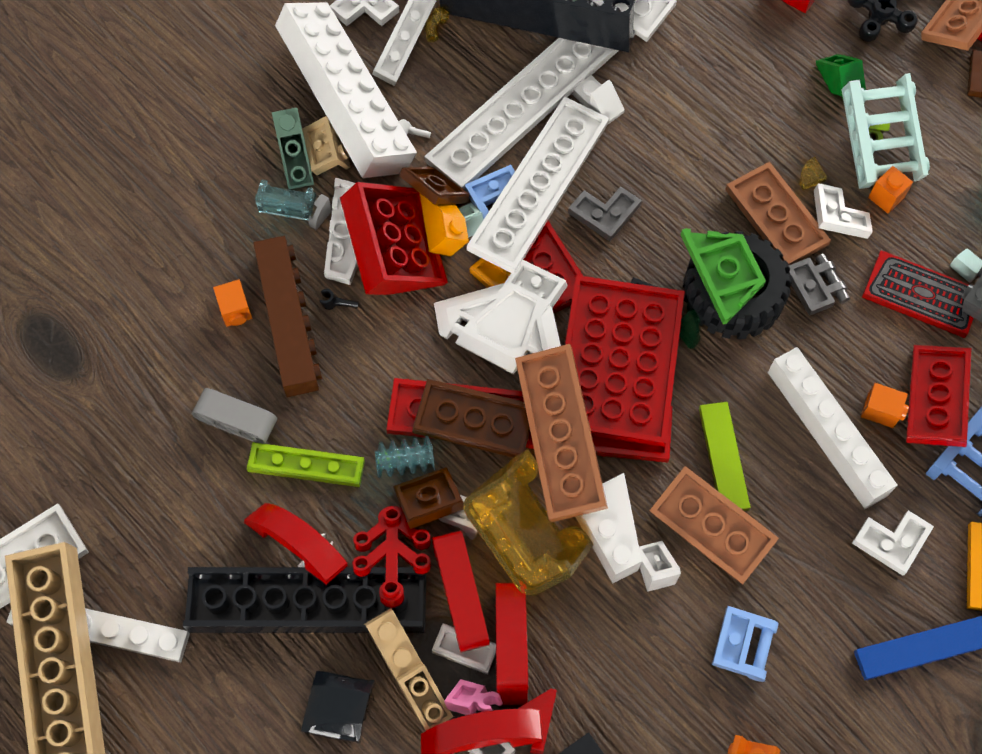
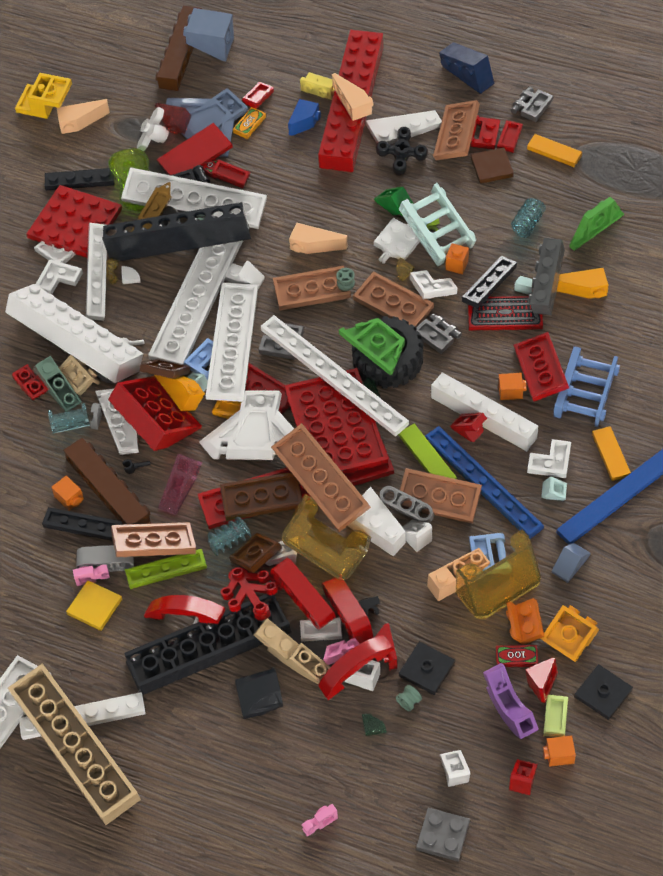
camera: 20 degrees left, 10 degrees down
(190, 475) = (94, 605): none -> yellow tile
(201, 429) = (89, 573): none -> bright pink plate
(231, 355) = (79, 523): none -> black plate
(262, 131) = (29, 382): none -> red slope
(303, 419) = (153, 539): none -> nougat plate
(379, 352) = (179, 483): none -> clear pink slope
(454, 39) = (129, 275): none -> white tile
(544, 641) = (368, 603): none -> black tile
(650, 294) = (335, 376): none -> white plate
(650, 512) = (400, 497): none -> light grey beam
(678, 151) = (308, 288): none -> nougat plate
(686, 655) = (443, 580): none -> light nougat slope
(712, 87) = (316, 240): none -> light nougat slope
(729, 152) = (345, 279): none -> sand green wheel
(743, 705) = (503, 582): none -> clear yellow windscreen
(783, 523) = (491, 488): none -> blue tile
(801, 437) = (469, 425): none -> red slope
(819, 131) = (396, 241): none -> white plate
(854, 708) = (570, 561): none -> sand blue slope
(878, 585) = (554, 489): none -> light aqua slope
(920, 241) = (489, 282): none -> plate

